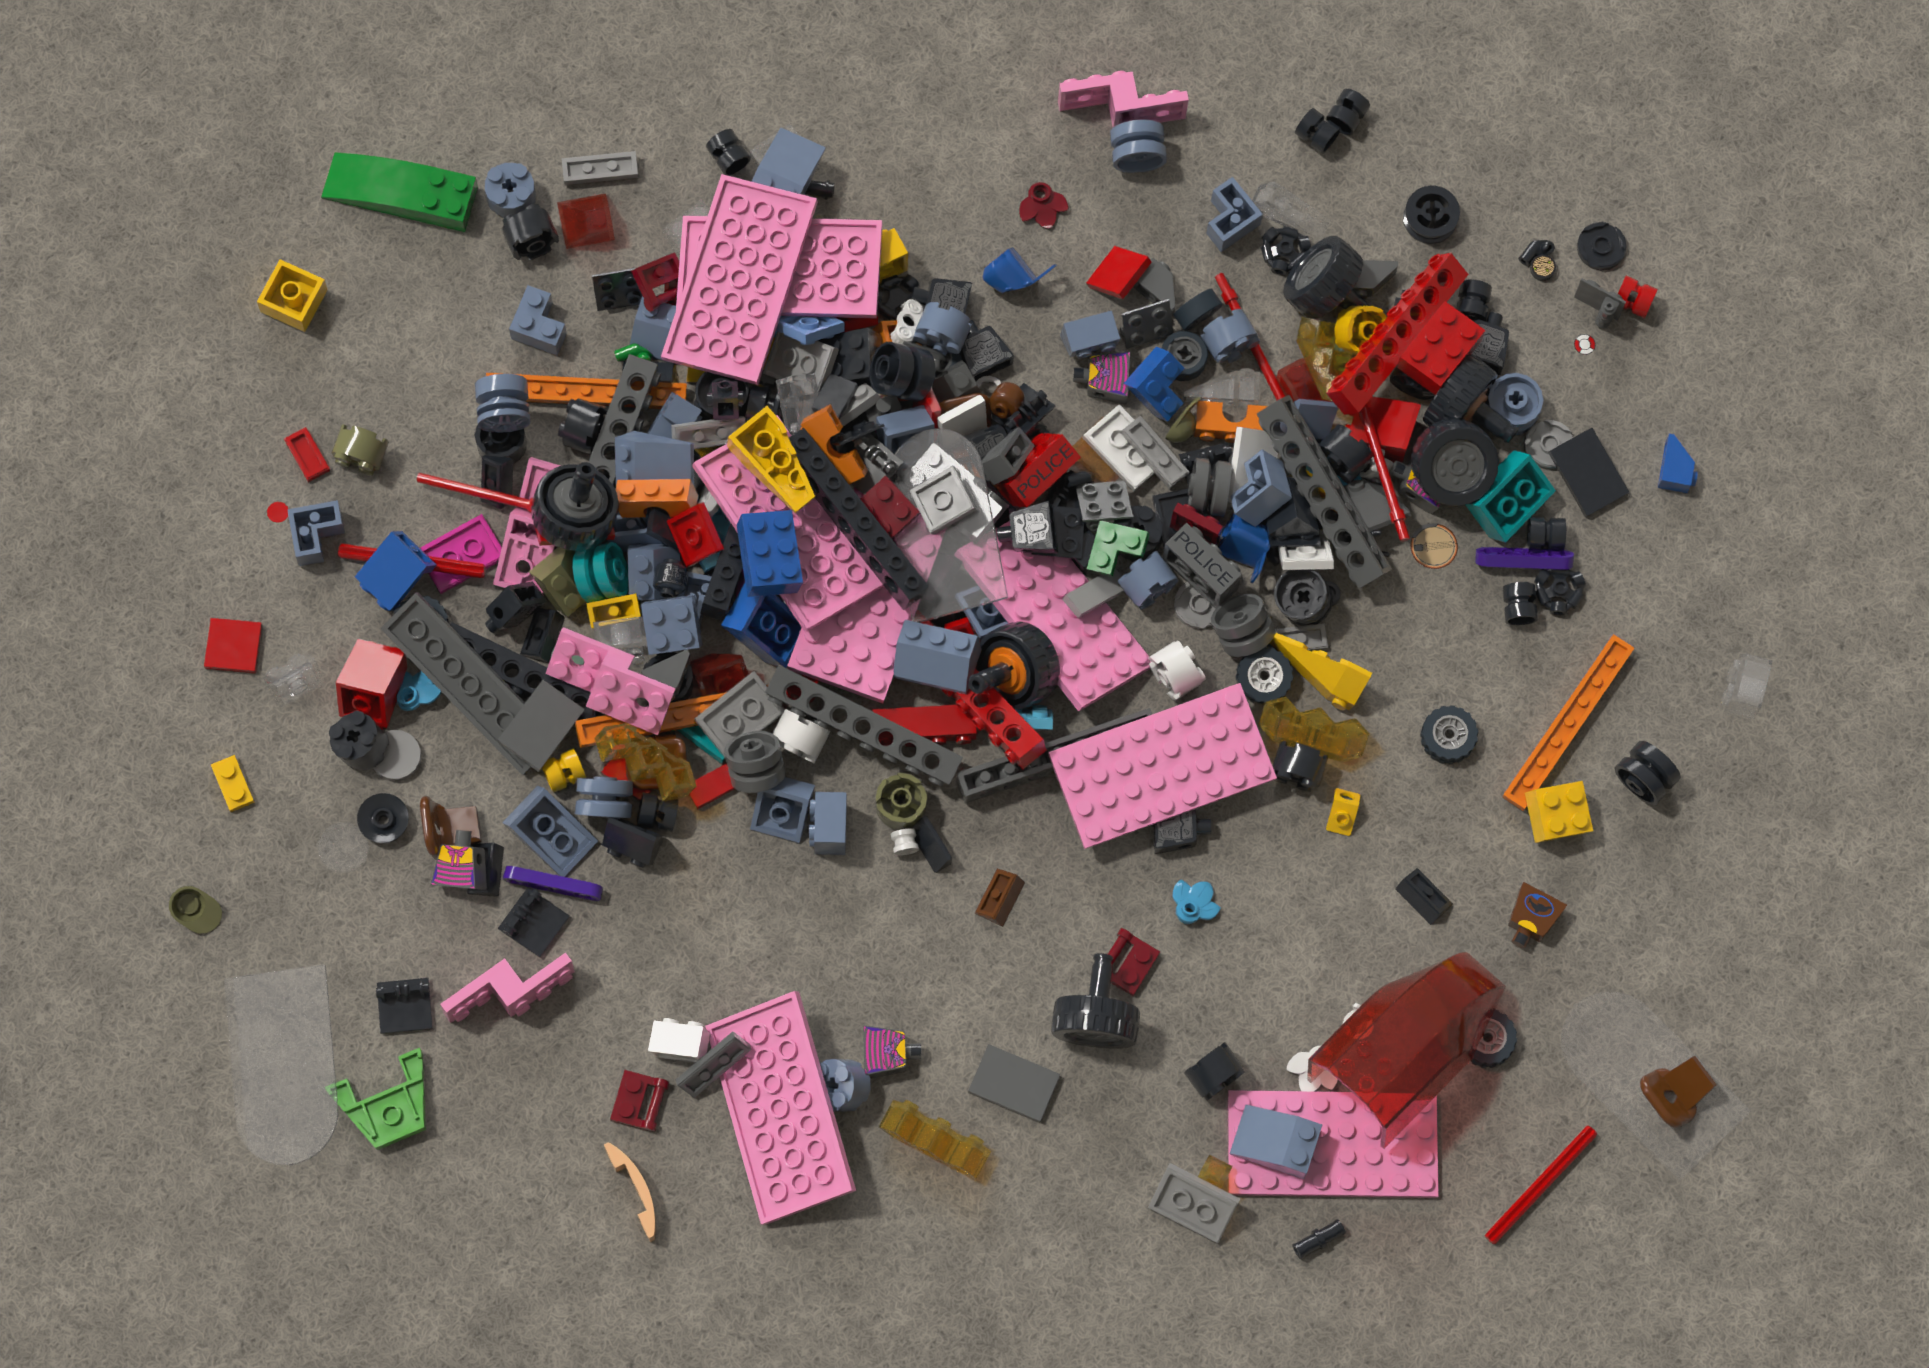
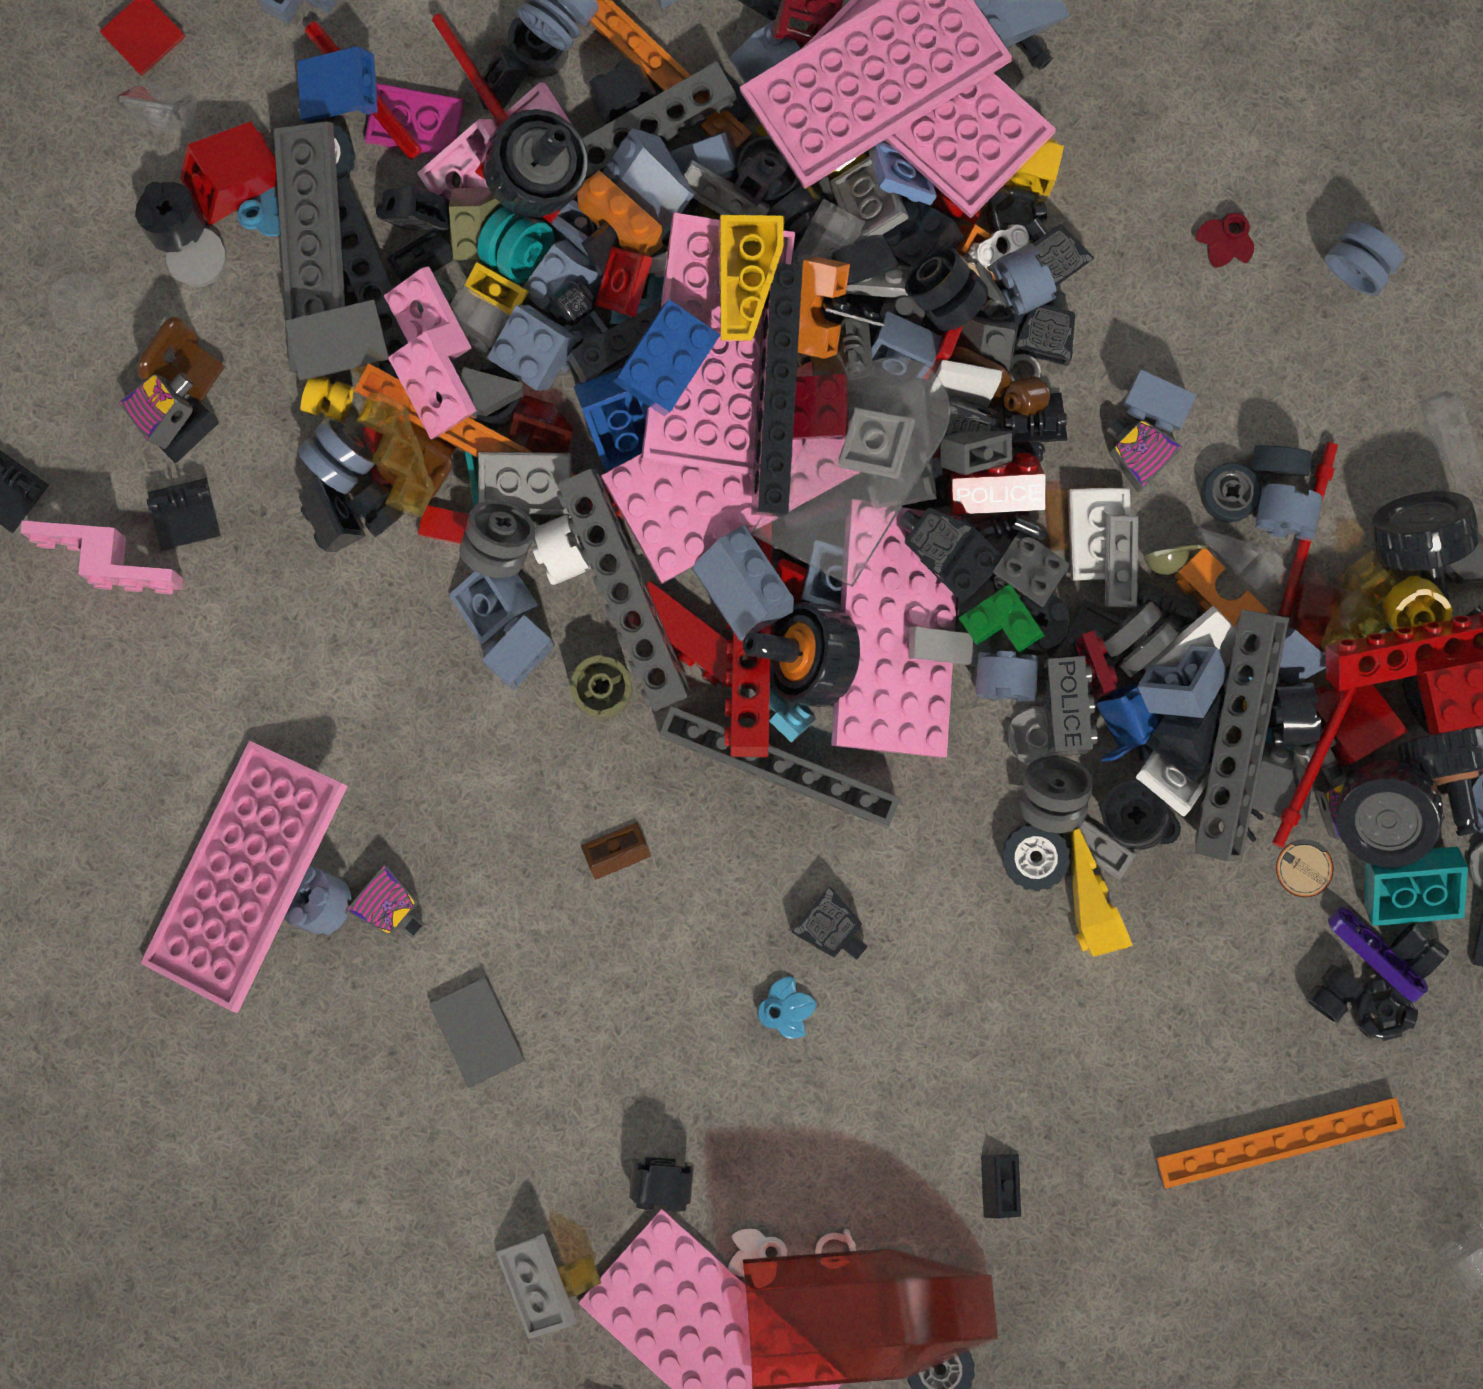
camera: 40 degrees right, 10 degrees up
(232, 783) = (33, 160): yellow plate -> none
(382, 806) = (122, 295): black dish -> none
(550, 831) = (267, 443): sand blue slope -> none
(553, 883) = (229, 493): dark purple beam -> none
(621, 1161) = (45, 873): light nougat slope -> none
(631, 1097) = (129, 748): dark red plate -> none
(633, 349) = (732, 64): green arm -> none
(678, 1041) = (211, 735): white brick -> none
(713, 1064) = (220, 783): dark grey tile -> none
(904, 842) = (573, 726): white wheel -> none
(931, 845) = (595, 749): black slope -> none
(935, 1138) = (359, 1022): clear yellow brick -> none
(1010, 272) = (1139, 278): blue piece -> none
(1095, 1017) = (595, 1041): black wheel -> none
(1118, 272) = (1240, 363): red tile -> none
(1122, 99) = (1391, 195): bright pink bracket -> none
(1136, 963) = (678, 1021): dark red plate -> none
(1147, 324) = (1222, 434): dark grey hinge -> none
(1152, 382) = (1175, 493): blue brick -> none
(1157, 284) = (1265, 404): dark grey slope -> none
(1162, 766) = (863, 862): bright pink plate -> none
(1176, 669) = (959, 782): white brick -> none
(1237, 215) = (1399, 403): sand blue brick -> none
(1276, 1140) = (659, 1296): sand blue slope -> none
(1283, 249) = (1415, 470): black piece -> none
(1299, 765) = (991, 968): black brick -> none
(1314, 729) = (1033, 948): clear yellow brick -> none
(1343, 812) = (996, 1045): yellow bracket -> none
(1455, 721) = (1173, 1047): black wheel -> none
(1533, 915) = (1084, 1293): reddish brown torso -> none
(1558, 811) = (1193, 1221): yellow brick -> none
(1647, 772) = (1309, 1257): black wheel -> none

